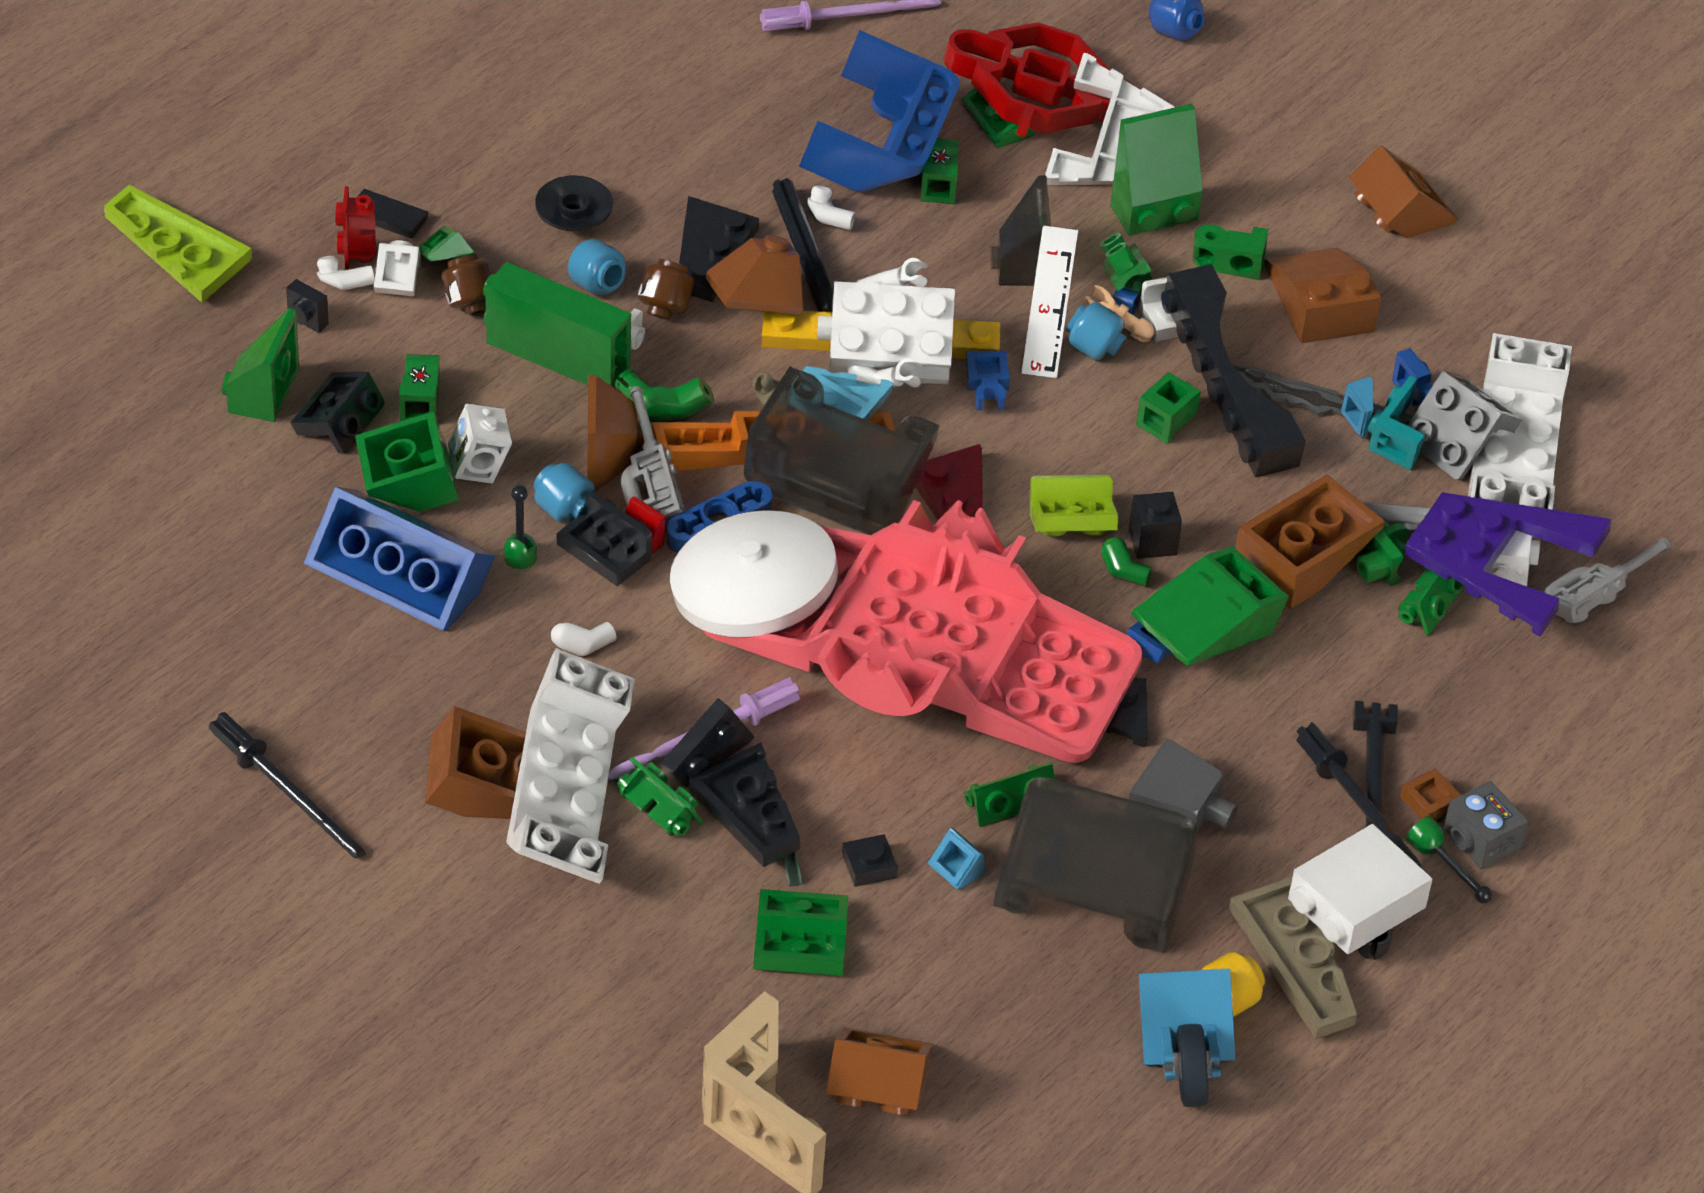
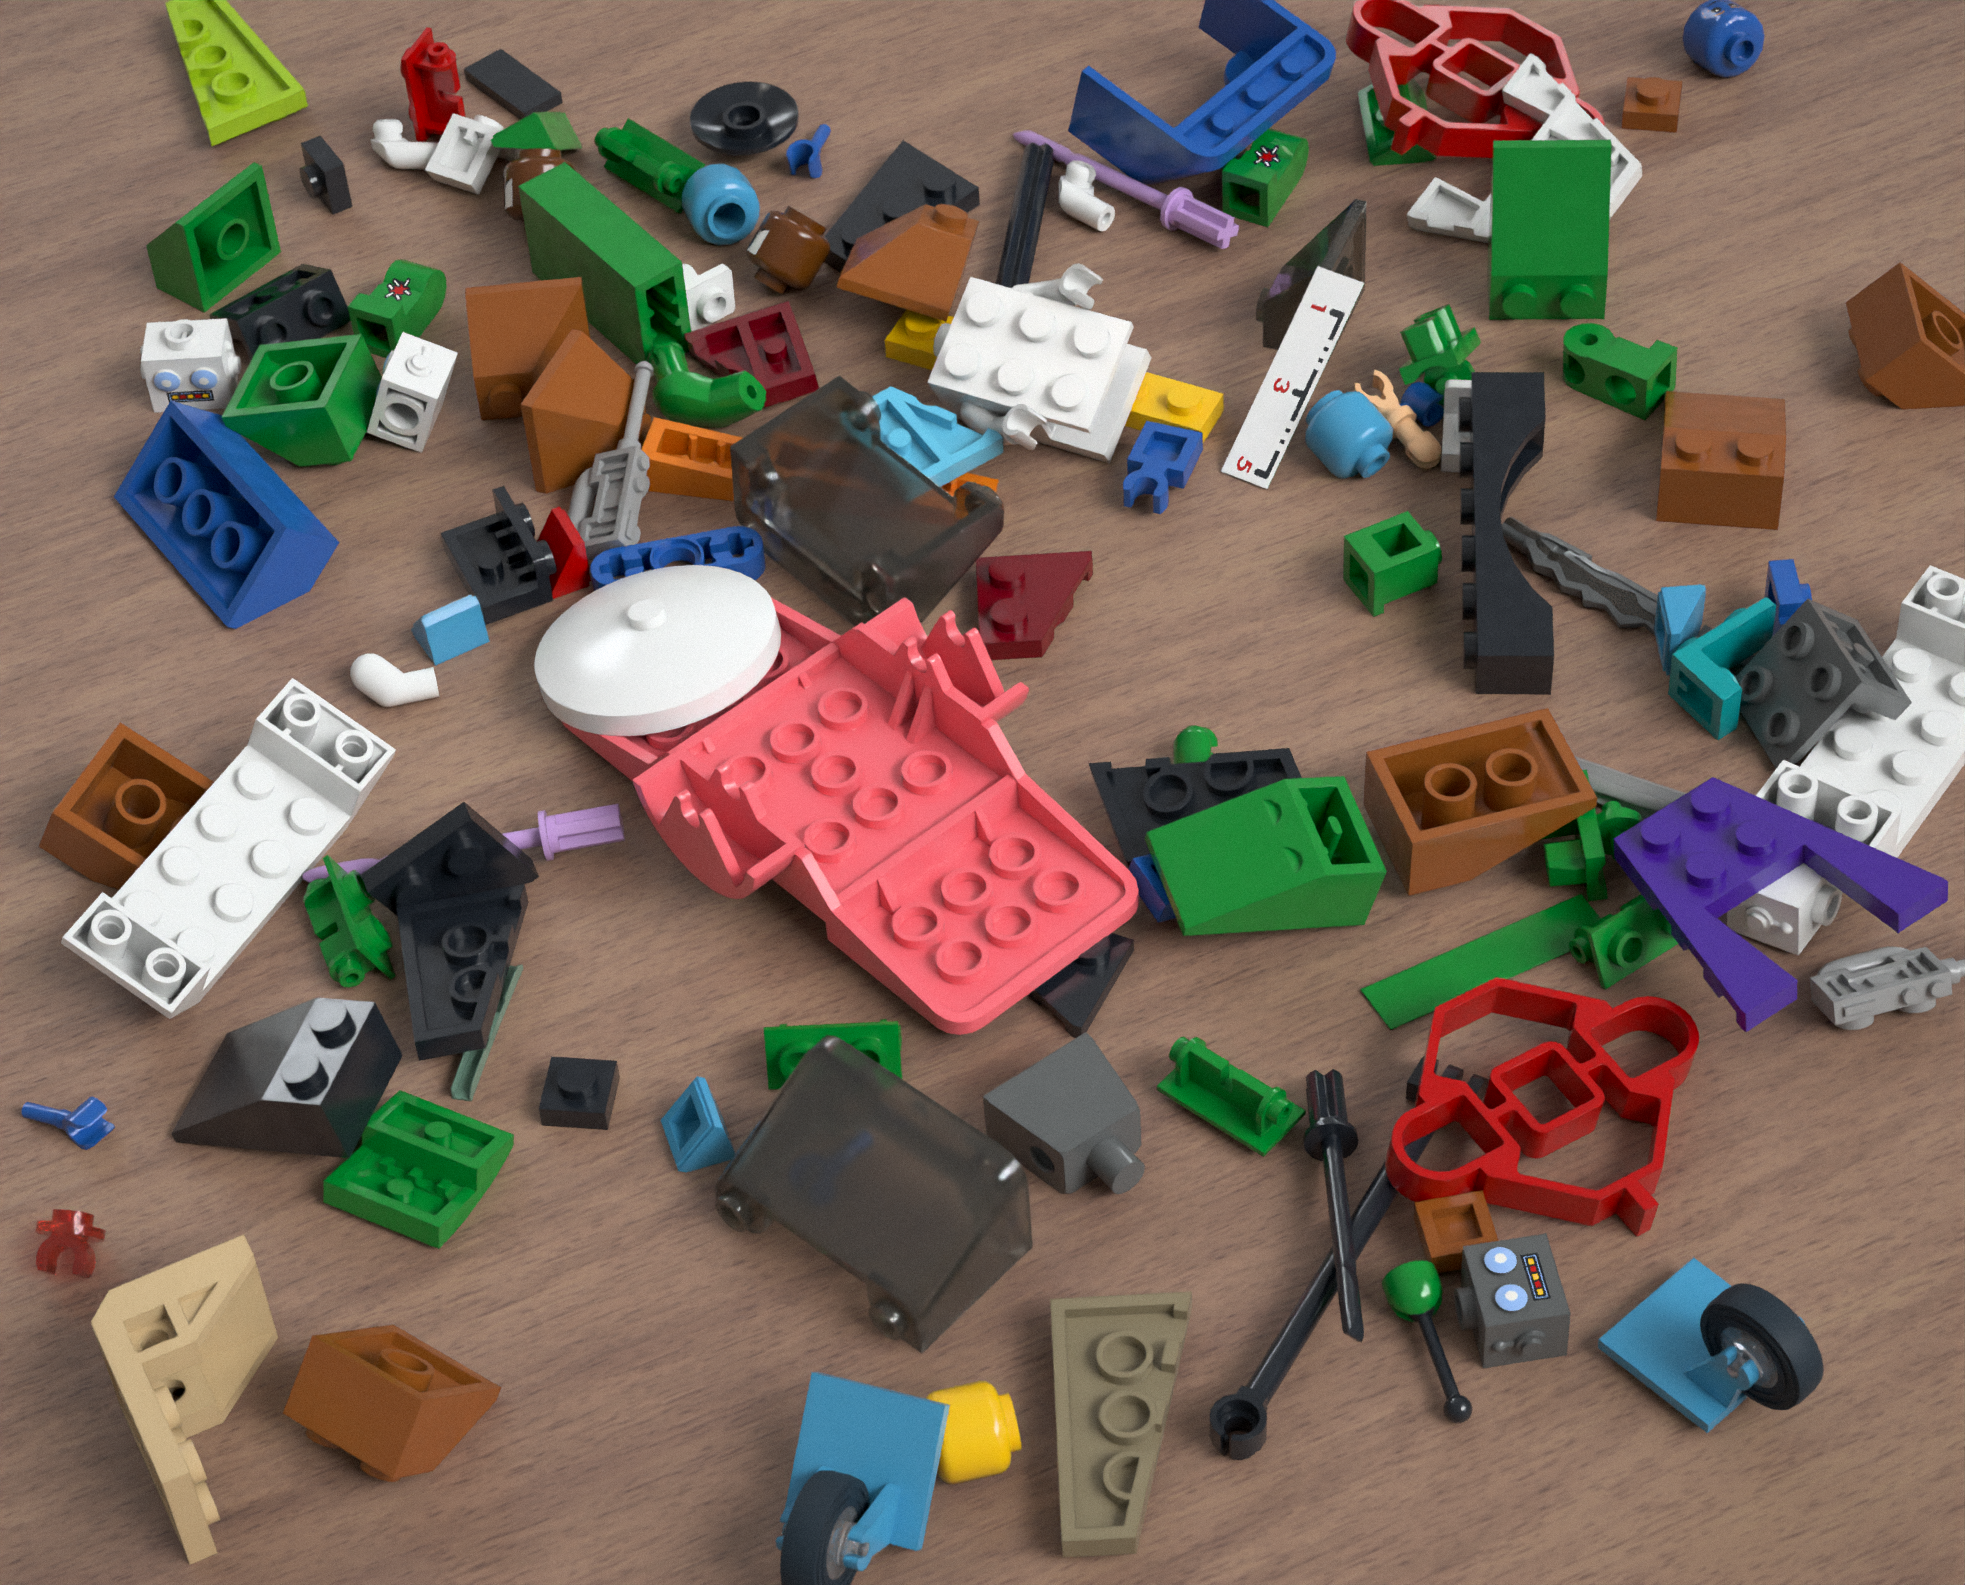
camera: 30 degrees right, 0 degrees up
(306, 460) = (190, 363): none -> white head
(520, 548) = (391, 532): green hinge -> none
(529, 249) = (647, 161): none -> green hinge
(537, 393) = (516, 336): none -> dark orange slope
(562, 491) = (475, 471): dark azure head -> none
(572, 967) = (82, 1125): none -> blue hand
(597, 594) = (451, 630): none -> dark azure slope
(615, 1029) = (68, 1231): none -> clear red plate
(627, 217) = (808, 152): none -> blue hand
(682, 359) = (762, 344): none -> dark red wing
(695, 900) = (295, 1081): none -> black slope
(900, 205) = (1177, 208): none -> lavender piece
(1072, 504) = (1168, 665): lime bracket -> none
(1121, 587) = (1166, 792): none -> black wing
(1152, 69) = (1652, 104): none -> dark orange plate
(1155, 525) = (1269, 713): black brick -> none
(1271, 758) = (1228, 1096): none -> green hinge
(1350, 638) = (1494, 955): none -> green sticker
(1359, 889) = (1236, 1343): white brick -> none
(1432, 730) = (1583, 1076): none -> red piece
(1611, 819) = (1716, 1346): none -> plate

